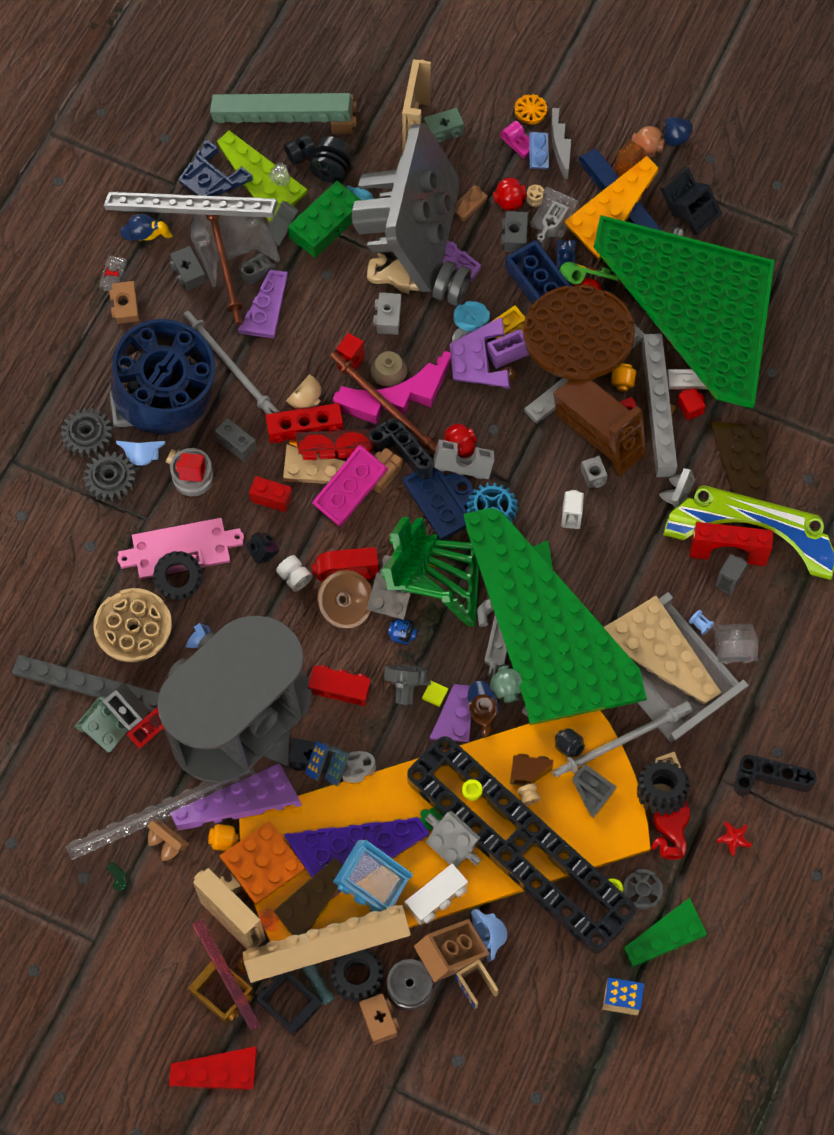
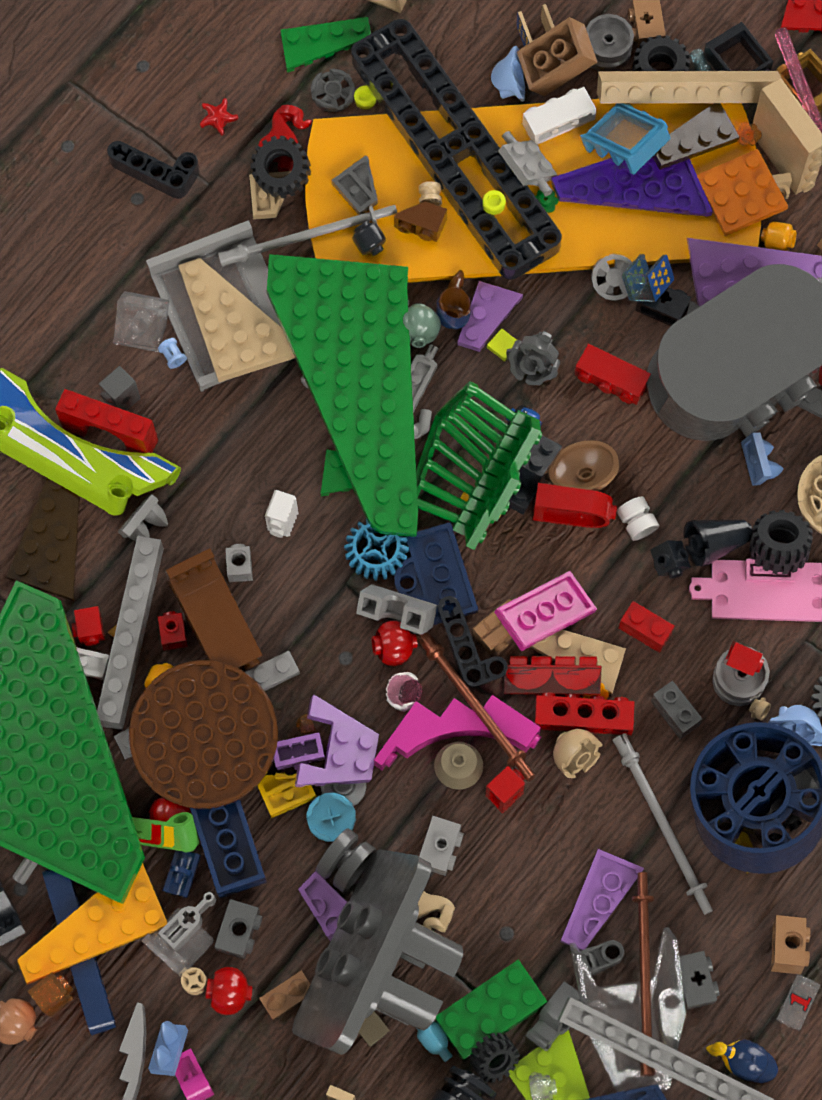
camera: 165 degrees left, 5 degrees up
(228, 570) = (715, 538): none -> black cone
(316, 187) = (505, 1057): none -> black tyre
(442, 408) = (403, 691): none -> clear pink hair

